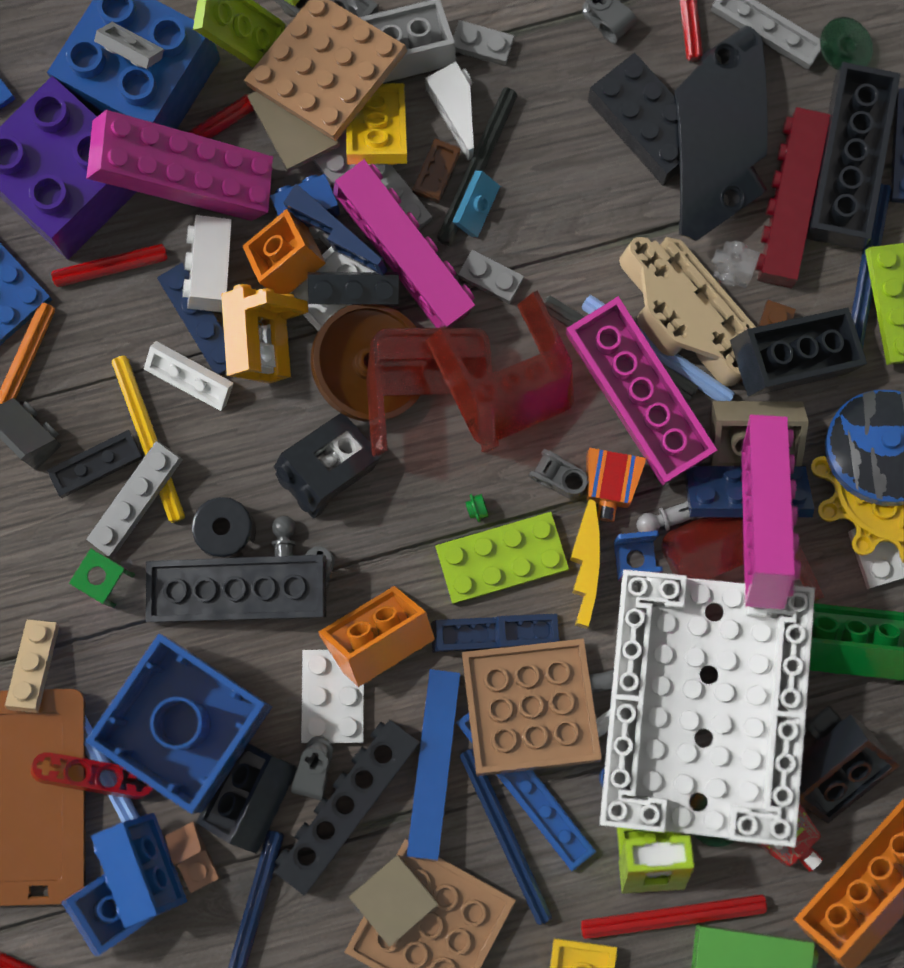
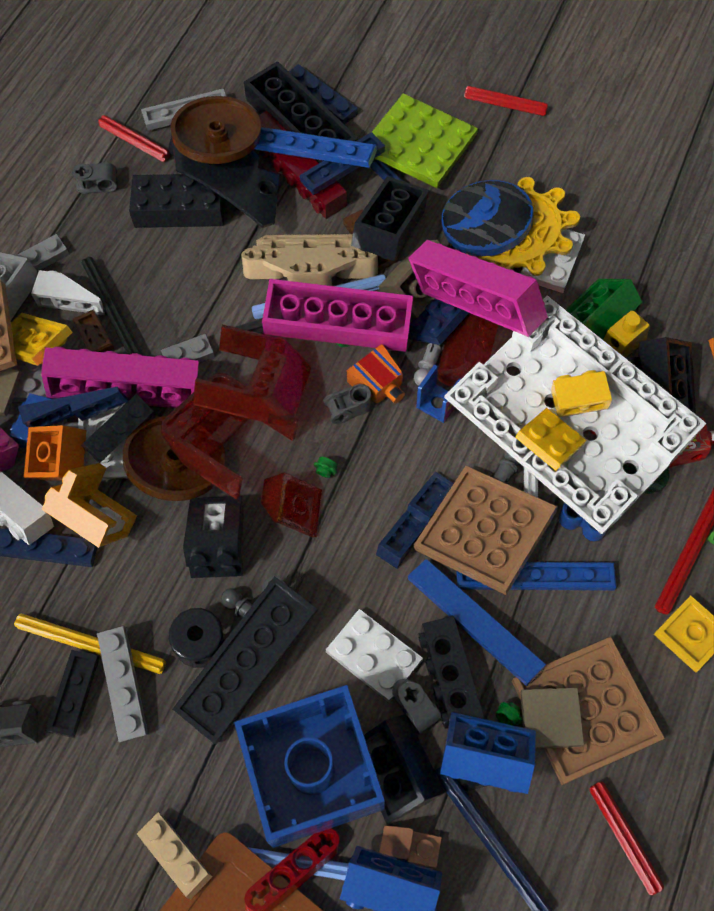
camera: 50 degrees left, 15 degrees down
(113, 573) = (165, 758): green piece -> none
(188, 375) = (73, 581): white plate -> none
(314, 868) = (489, 753): none -> blue slope
(371, 858) = (509, 714): none -> green plate
(377, 635) = (358, 589): orange slope -> none
(413, 508) = (292, 503): none -> clear red slope
(476, 204) = (135, 326): dark azure plate -> none
(501, 558) = (370, 479): lime plate -> none
(507, 840) = (561, 613): dark blue axle -> none
(587, 553) = (413, 424): yellow slope -> none
(653, 860) = (648, 524): lime brick -> none
(657, 706) = (551, 439): none -> yellow plate
(731, 700) = (581, 393): none -> yellow brick
(734, 264) = (307, 217): clear brick -> none
(750, 92) = (216, 129): none -> reddish brown dish
(816, 203) = (317, 147): none -> blue tile
(825, 250) = (329, 172): none -> dark blue plate
(851, 37) = (232, 79): clear green dish -> none
(853, 692) = (628, 333): none -> yellow torso

